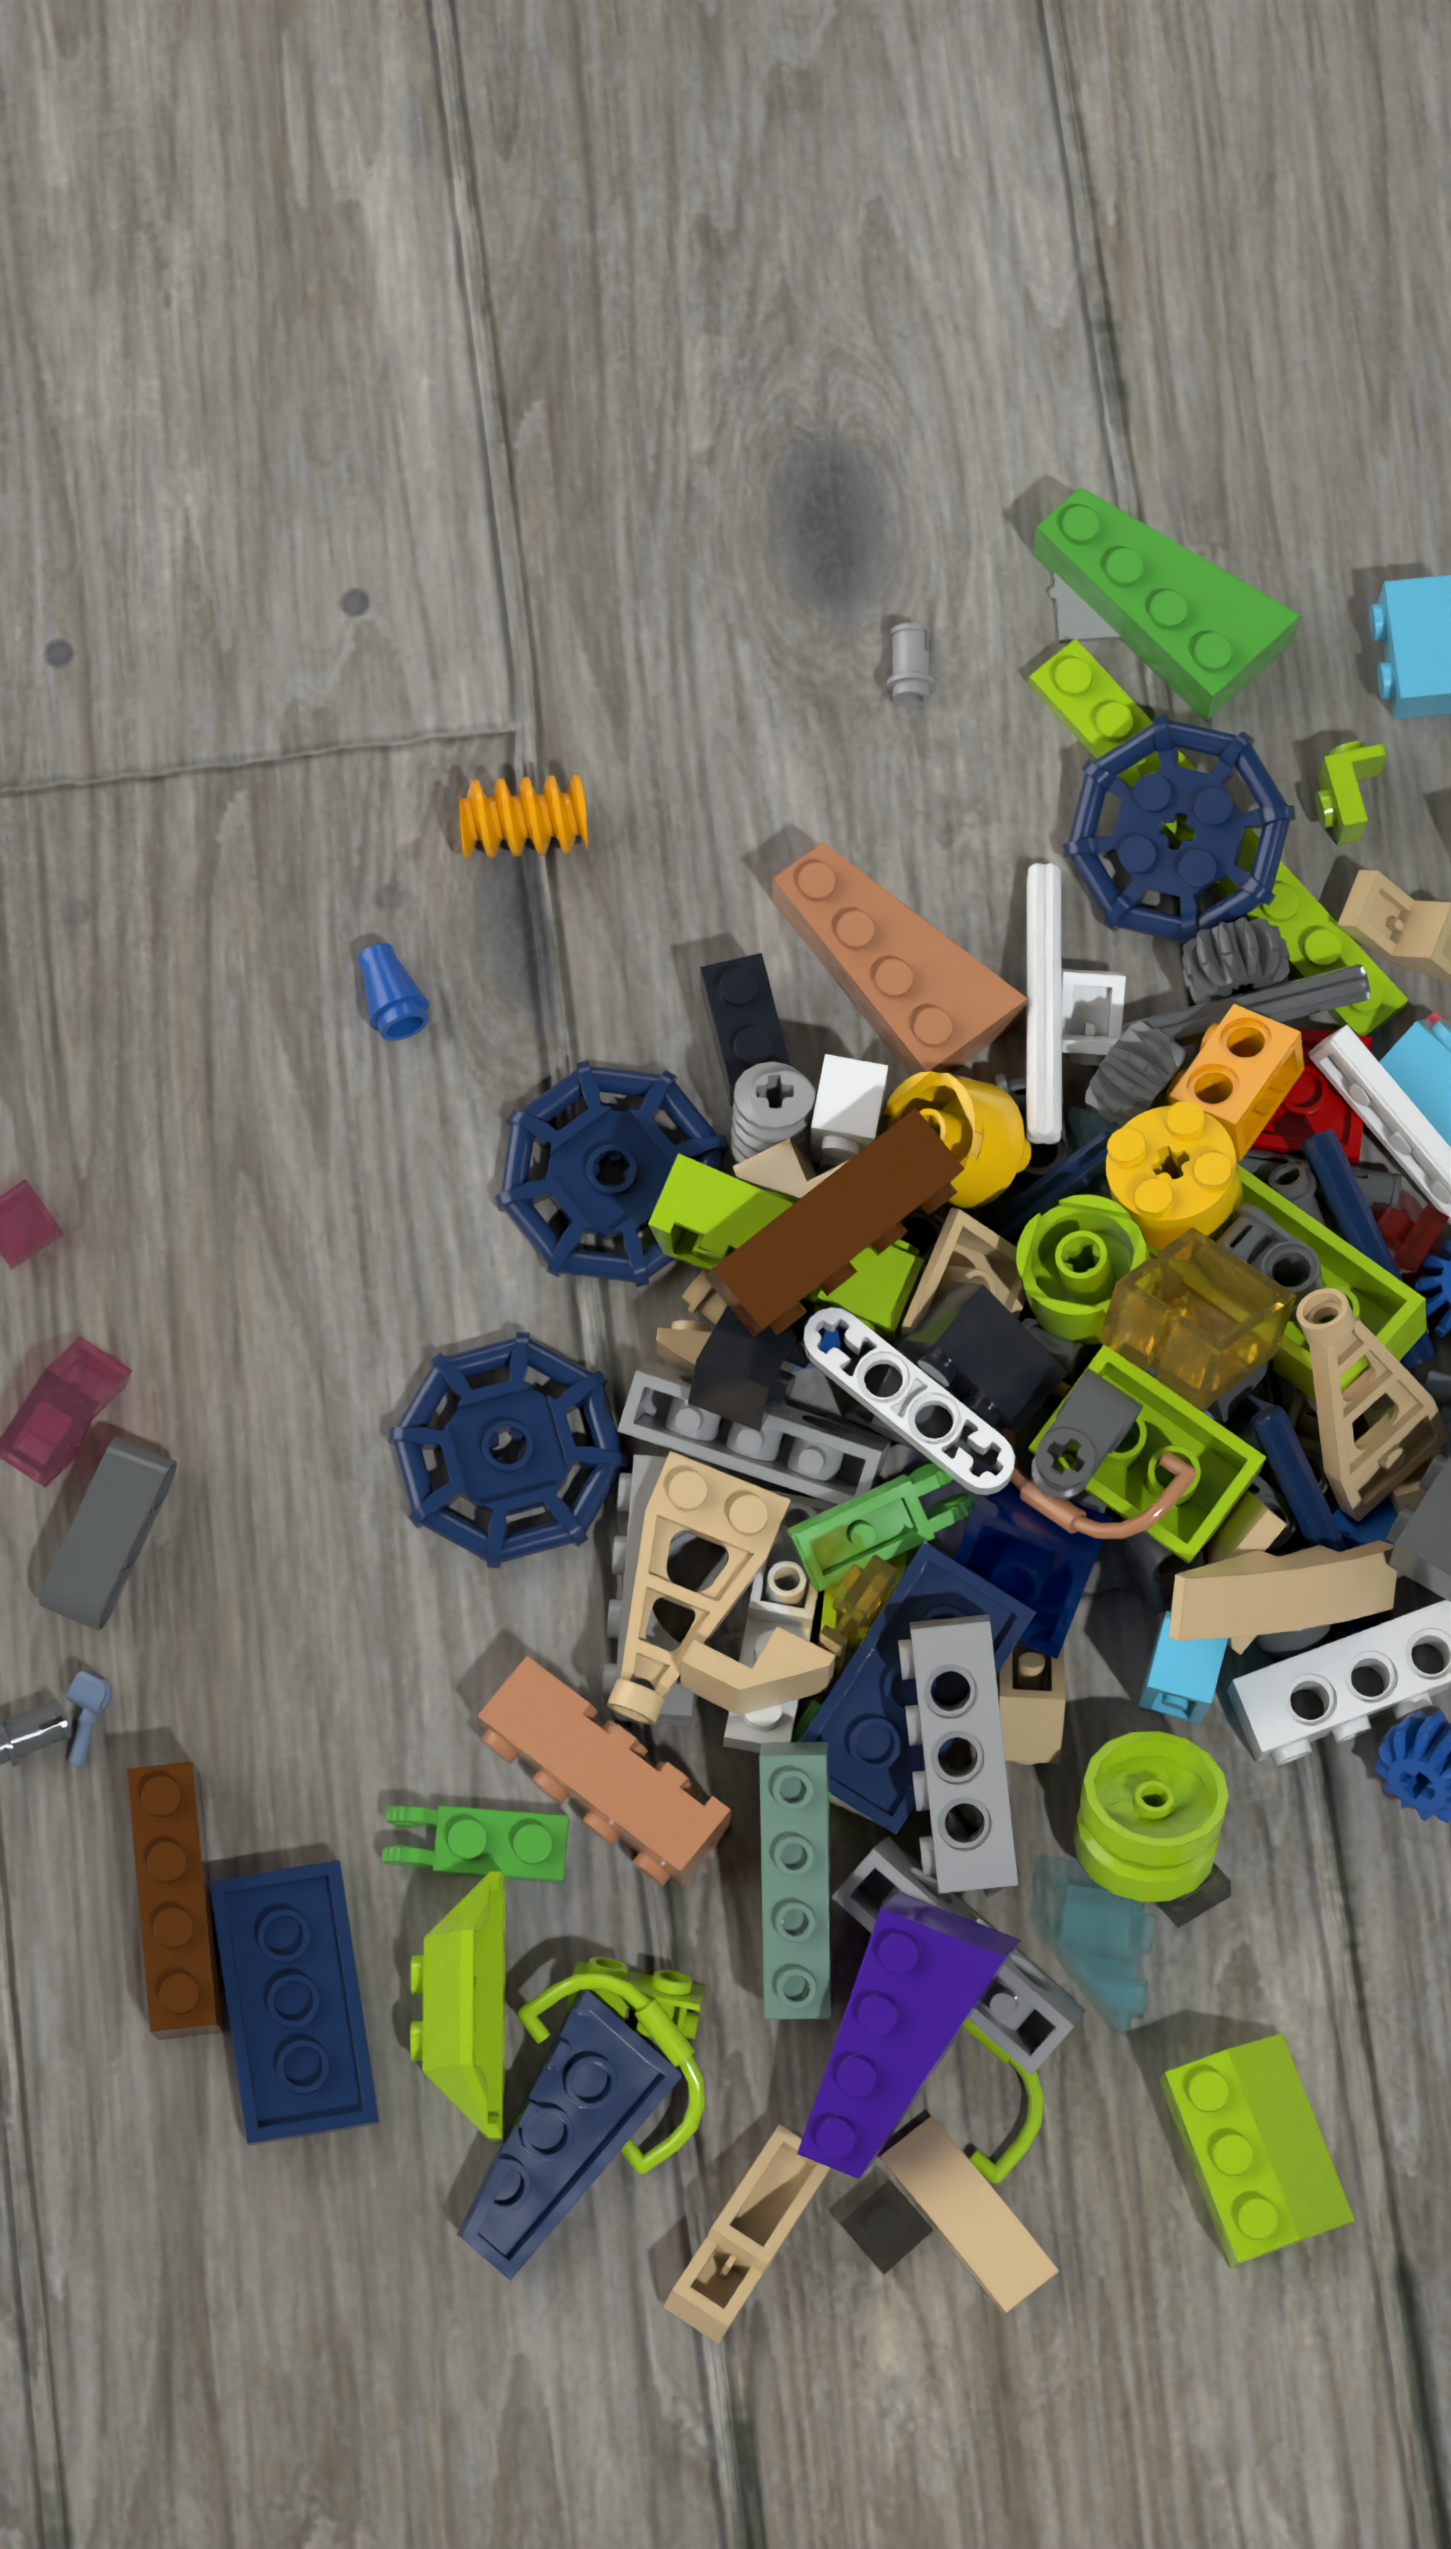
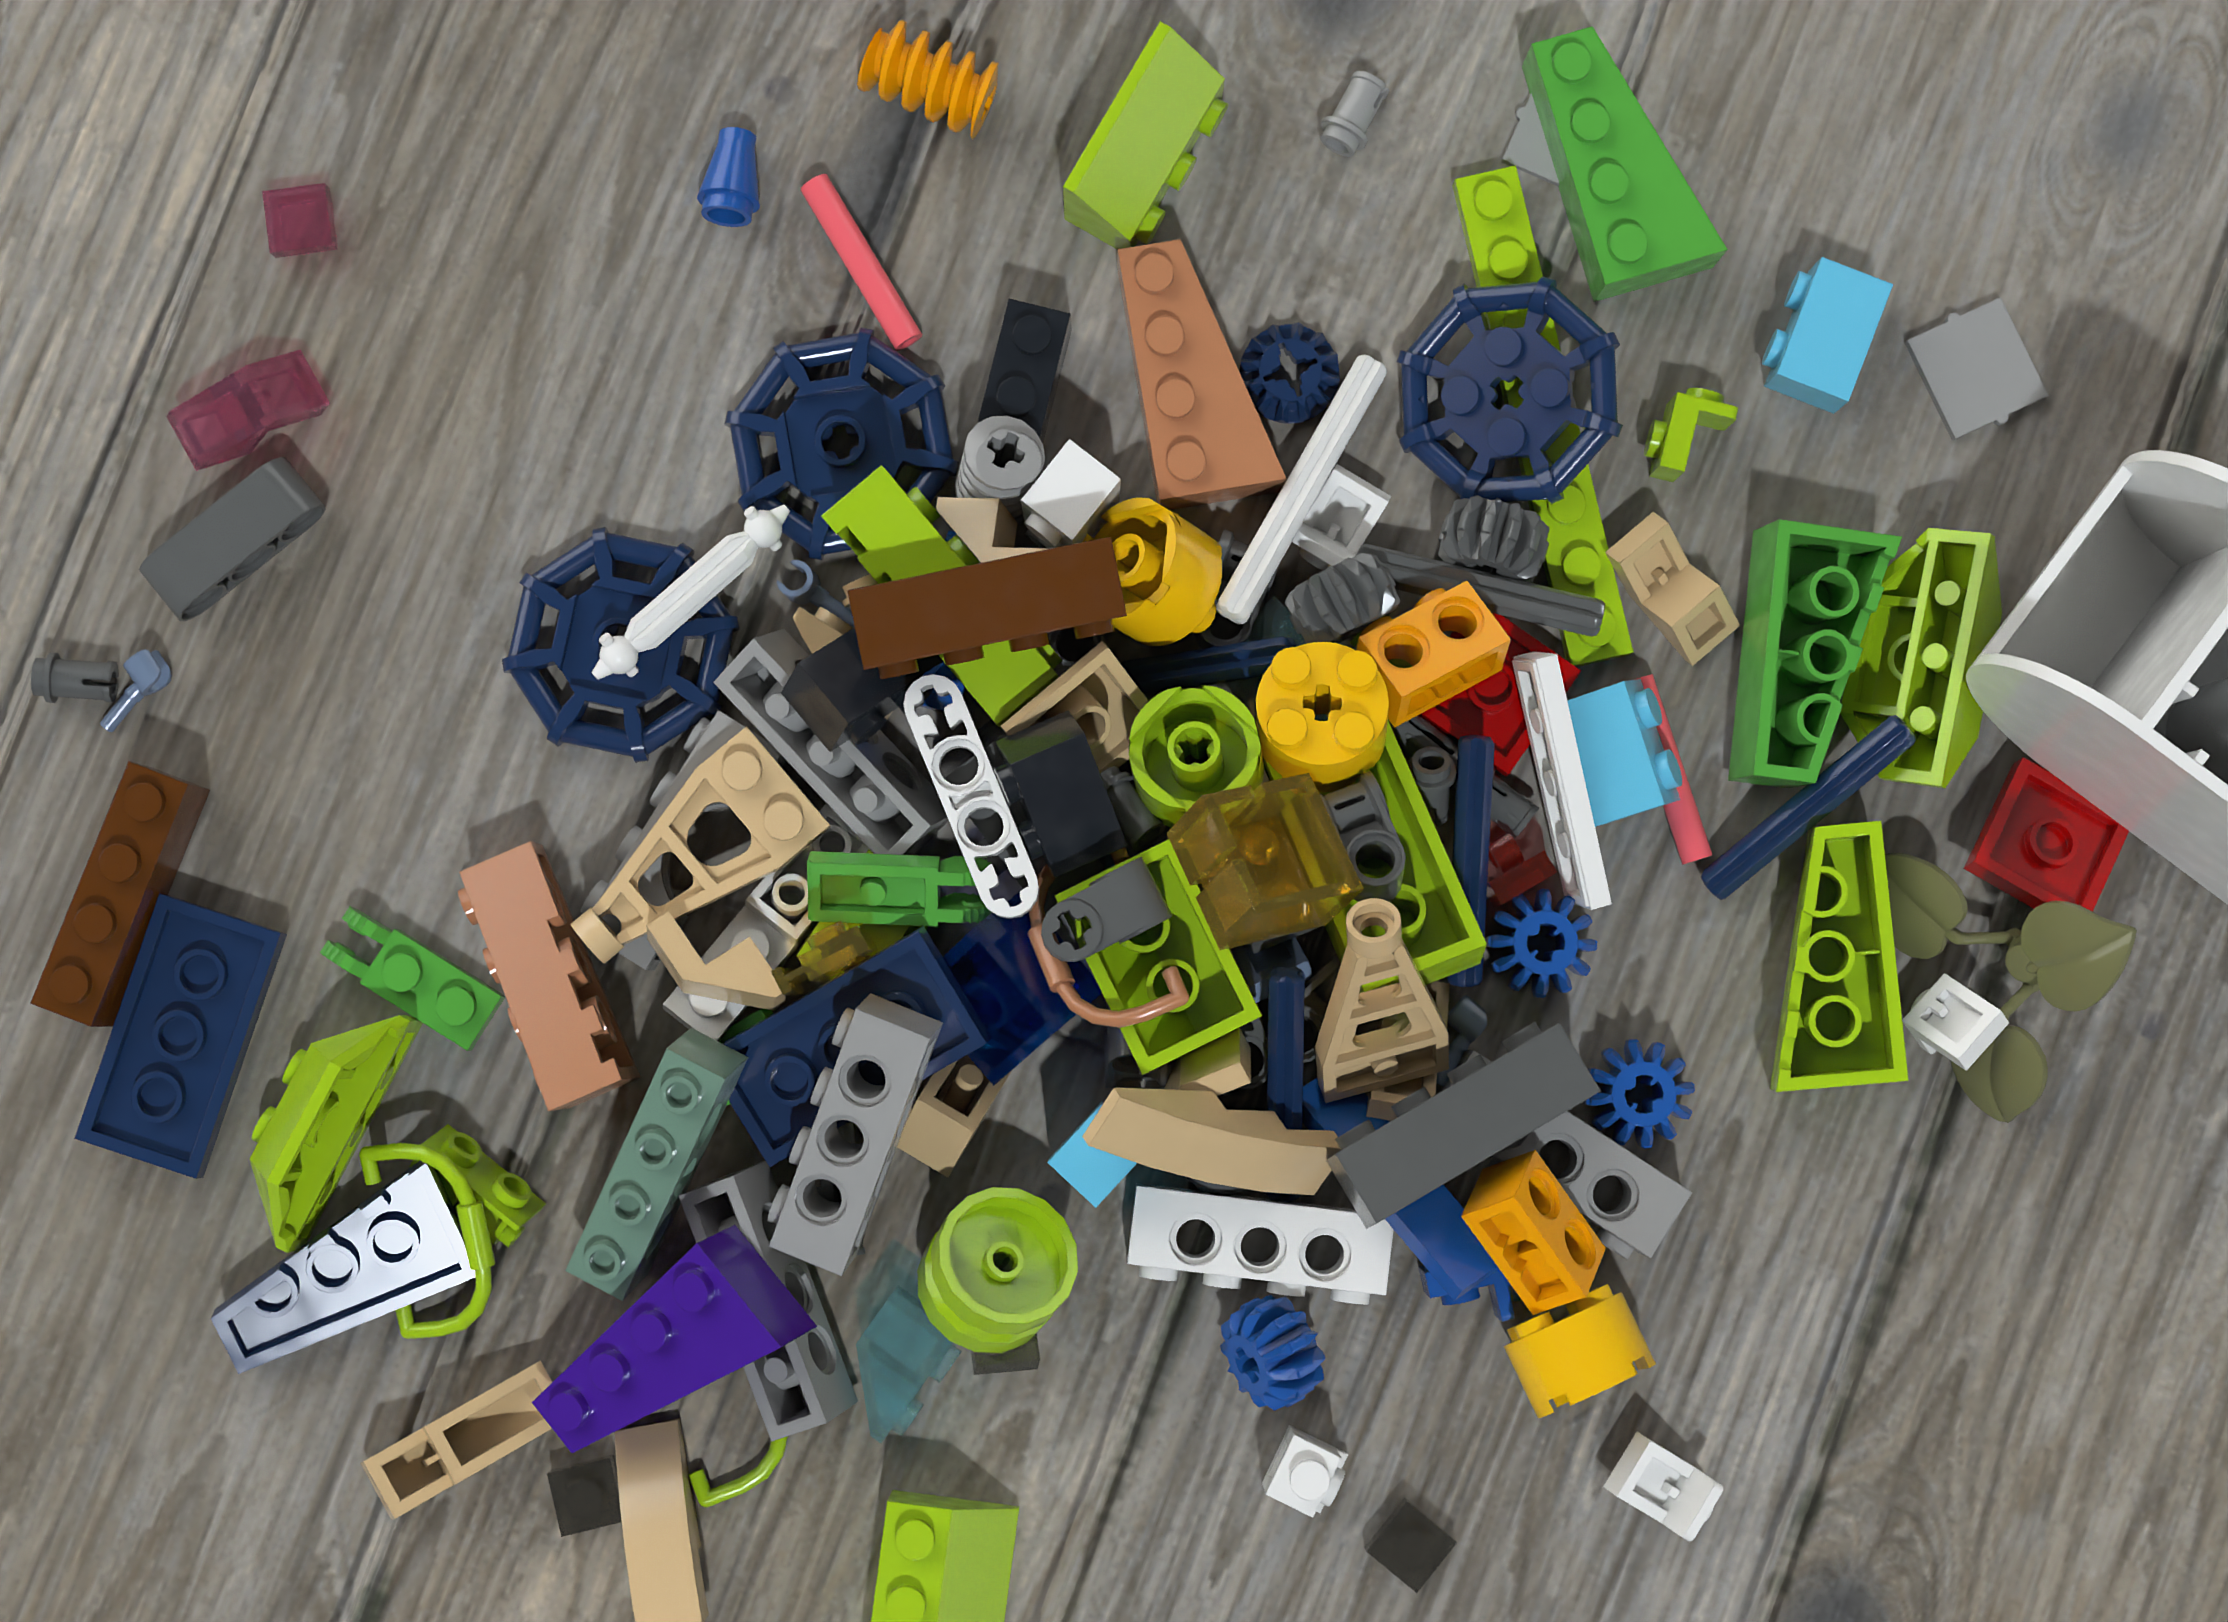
camera: 25 degrees right, 10 degrees up
(544, 1008) = (861, 262): none -> coral piece
(552, 1365) = (690, 592): none -> white wheel
(655, 1317) = (815, 594): none -> sand blue hand
(746, 779) = (1145, 142): none -> lime slope
(1004, 911) = (1275, 398): none -> dark blue gear

